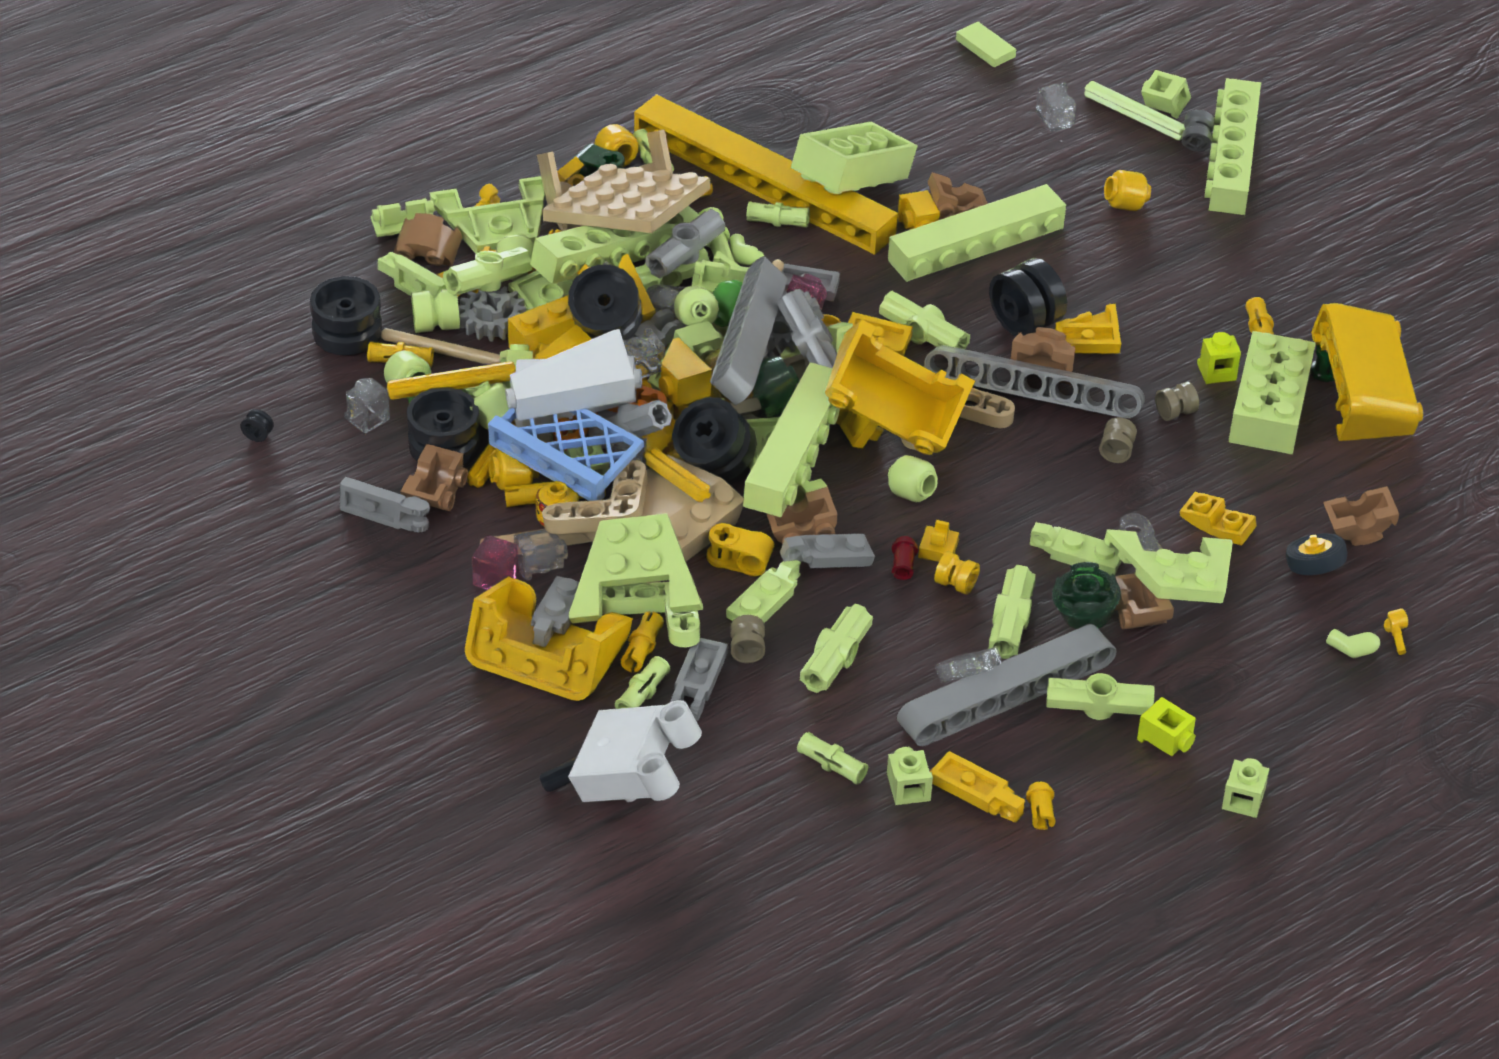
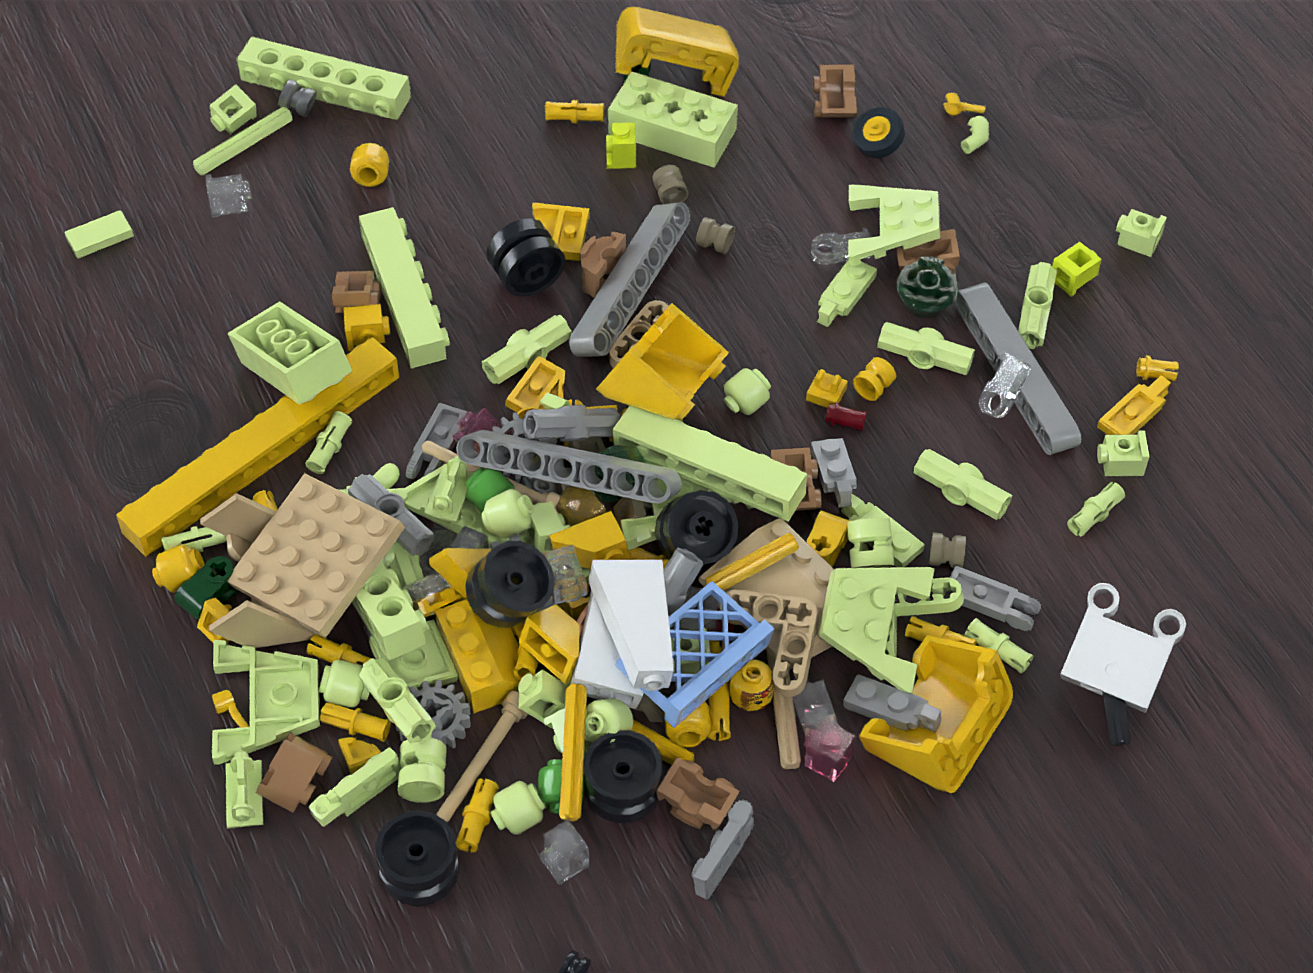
camera: 80 degrees left, 10 degrees up
(734, 571) = (870, 531): none -> yellowish green wheel
(1212, 517) = (819, 190): yellow slope -> none

